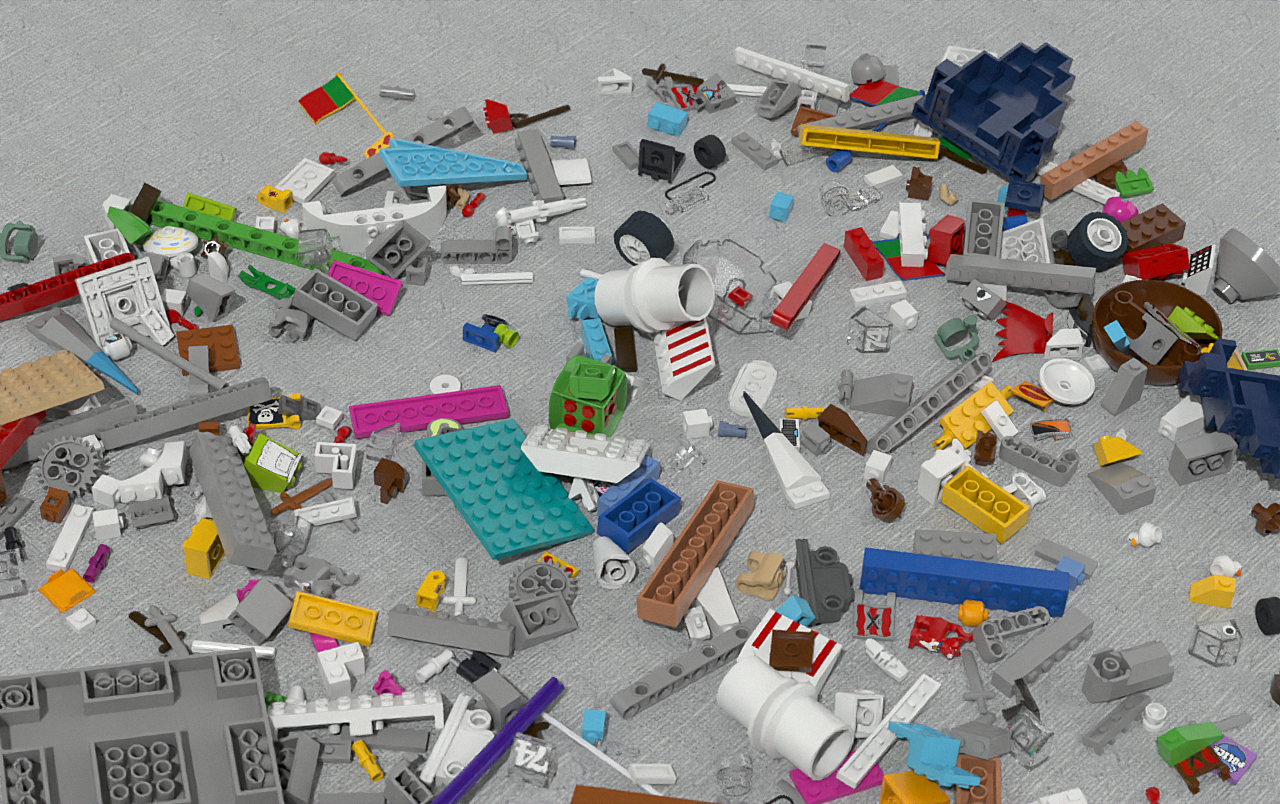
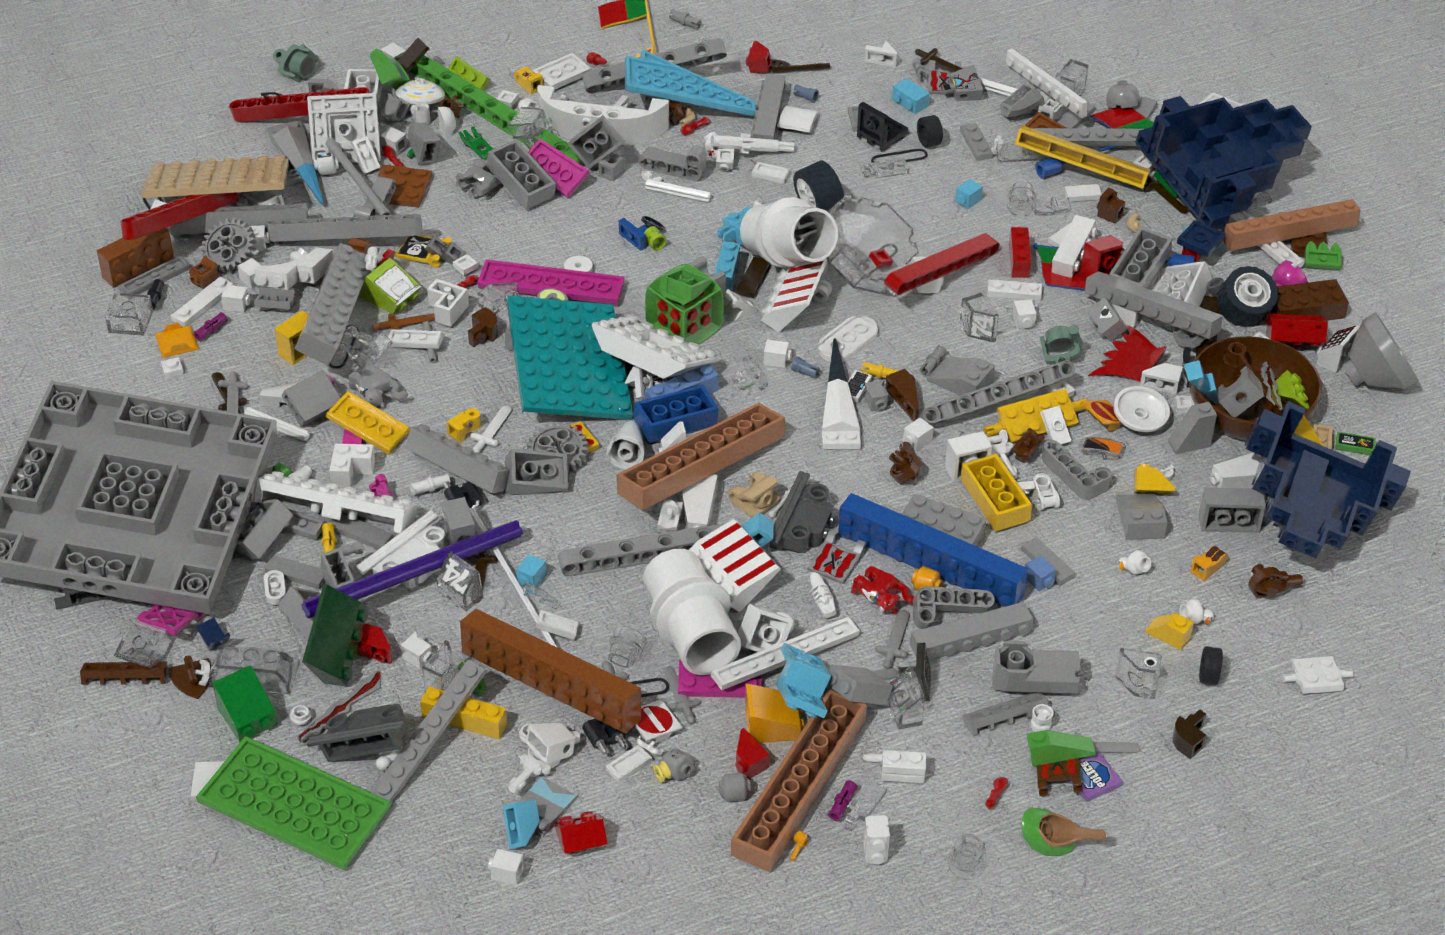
camera: 25 degrees right, 0 degrees up
(791, 650) = (729, 558): reddish brown plate -> none
(1207, 513) = (1210, 561): none -> light orange leg

